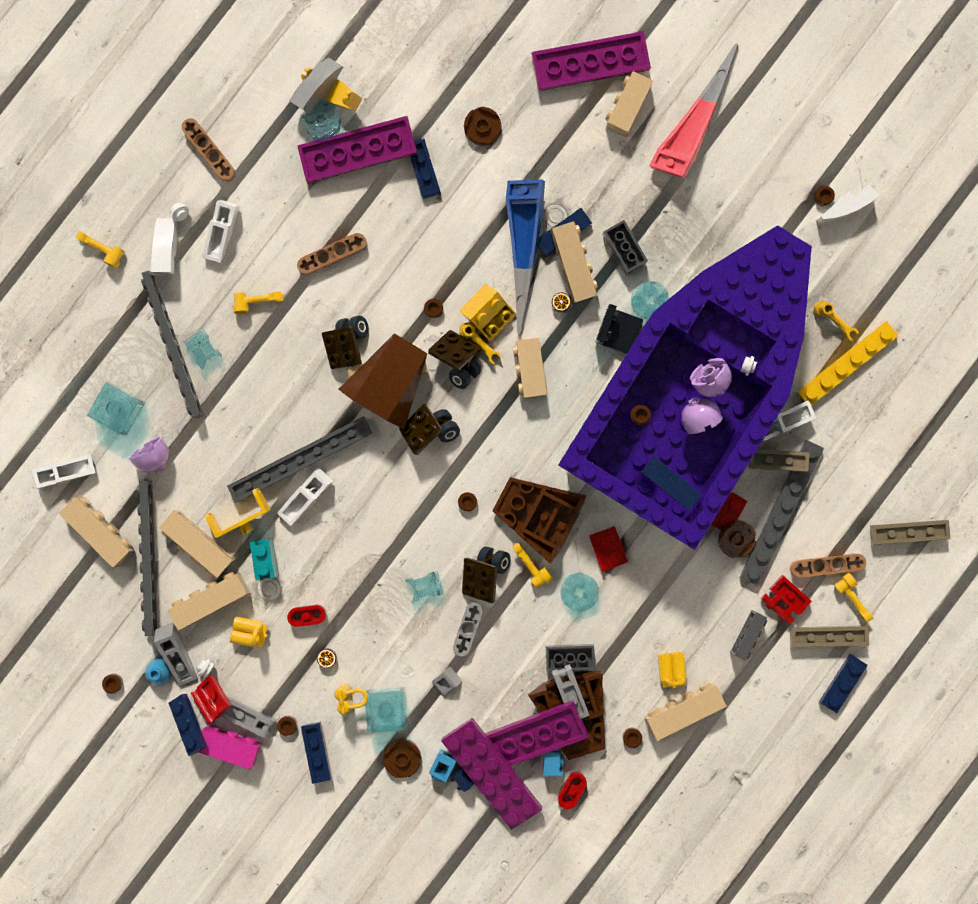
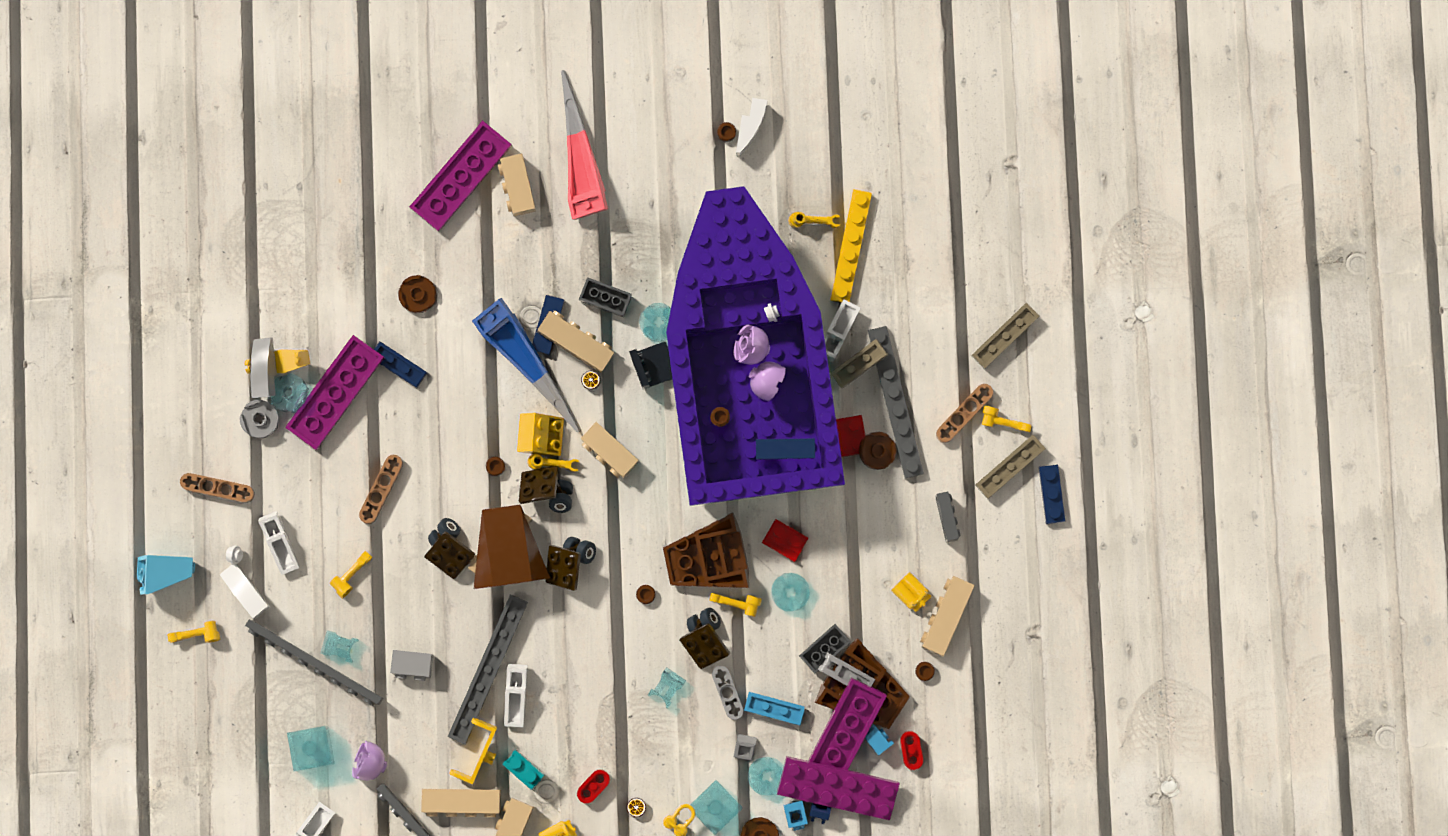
camera: 40 degrees left, 5 degrees down
(113, 180) = (162, 571): none -> medium azure slope
(244, 407) = (411, 664): none -> light grey brick
(279, 113) = (250, 413): none -> light grey plate
(436, 710) = (755, 775): none -> clear light blue plate
(493, 671) = (774, 708): none -> dark azure plate
(790, 595) = (954, 460): red plate -> none

